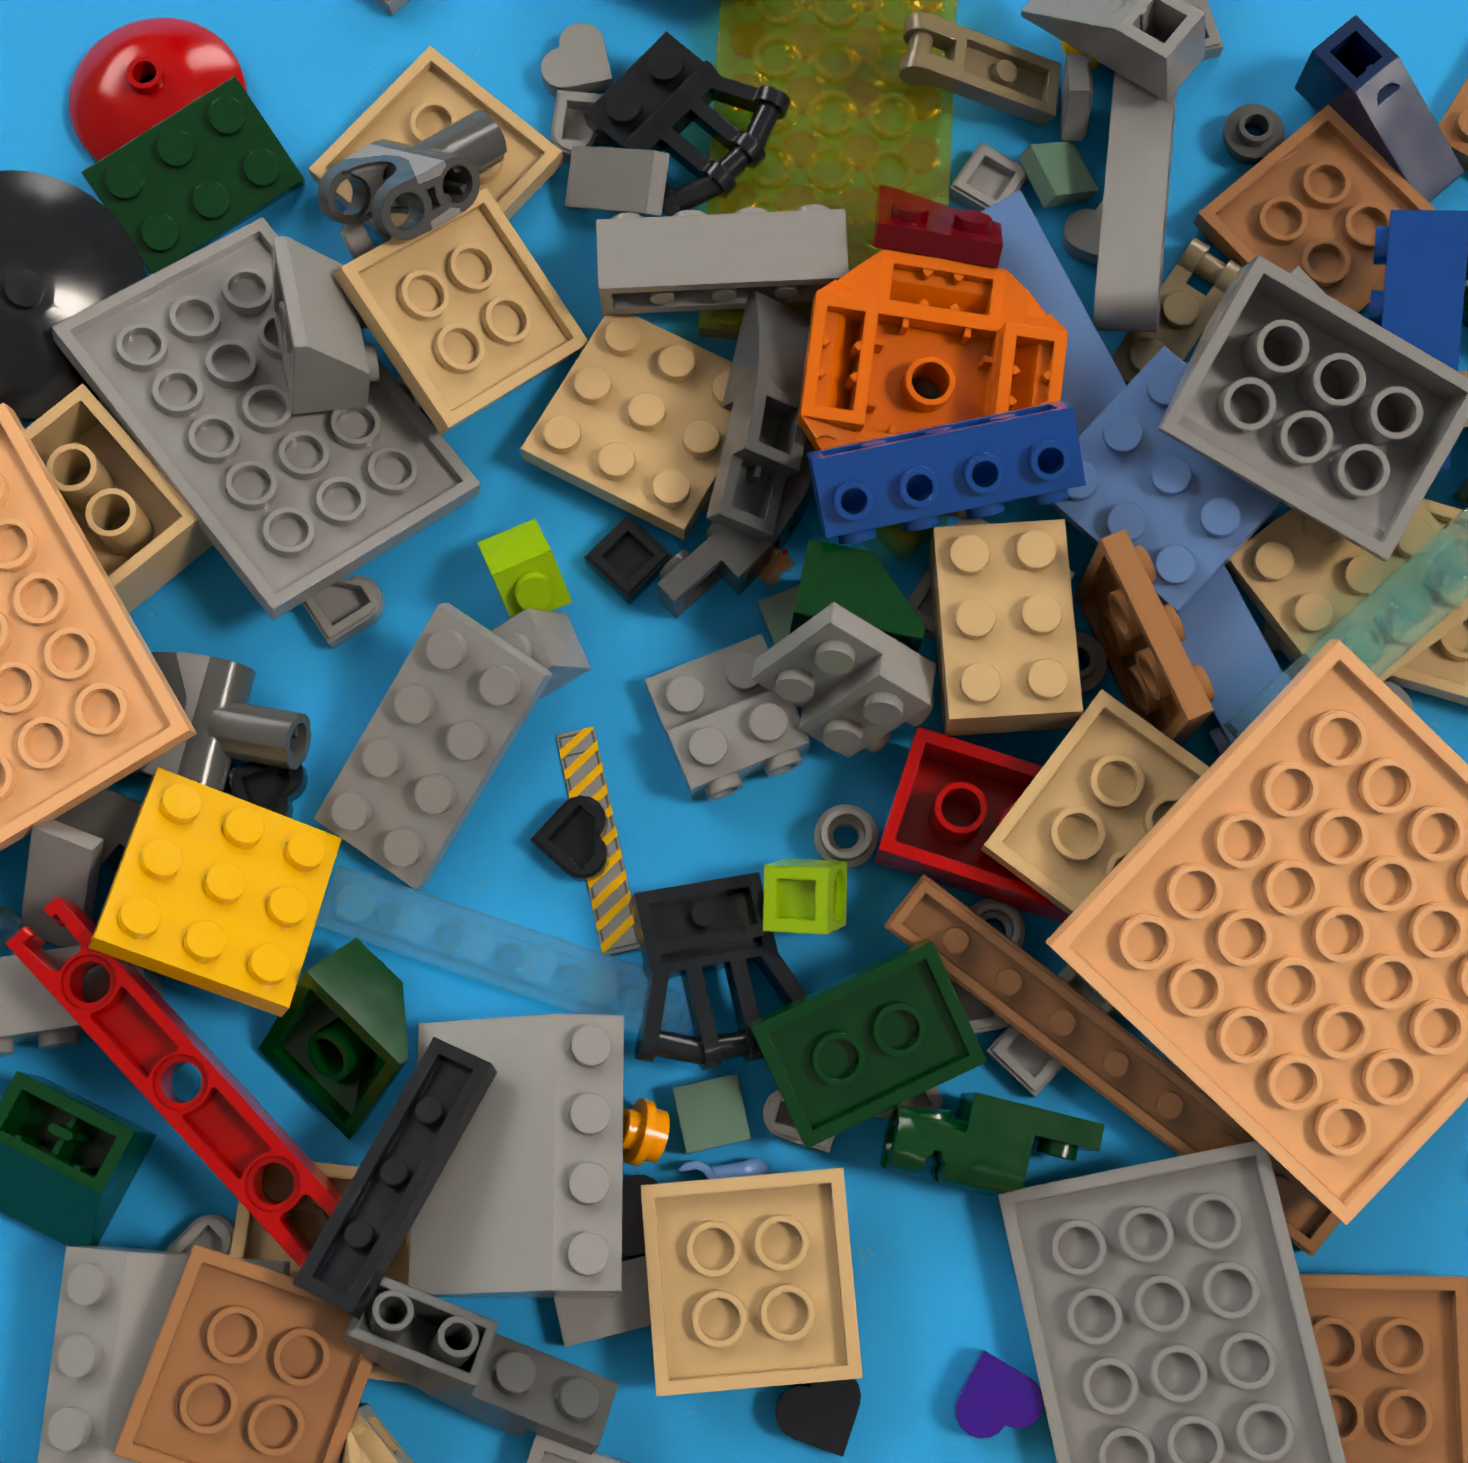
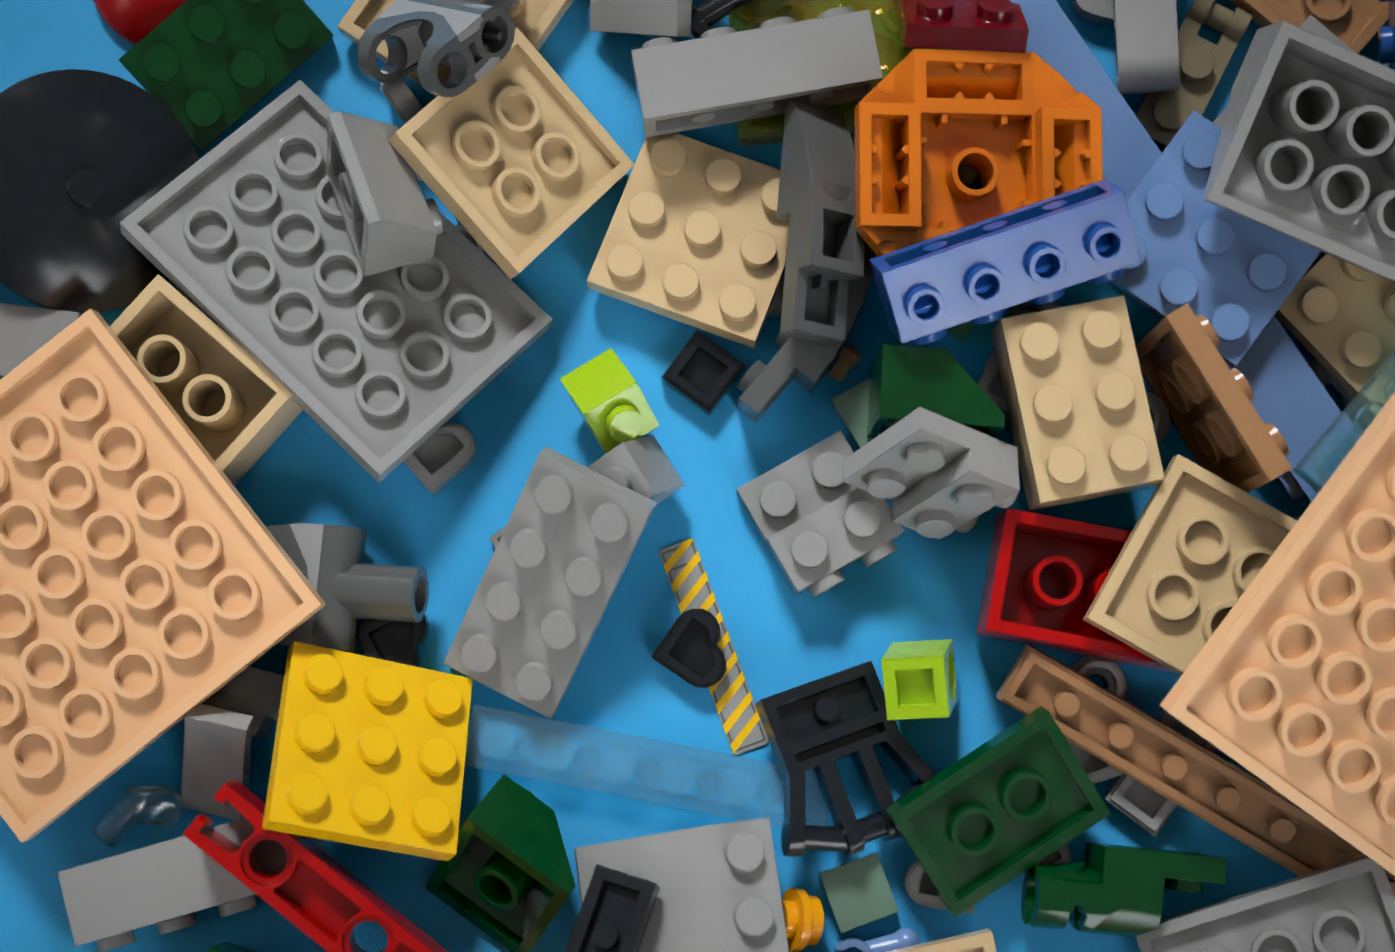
camera: 10 degrees left, 5 degrees up
(851, 817) = (959, 600): light grey plate -> none

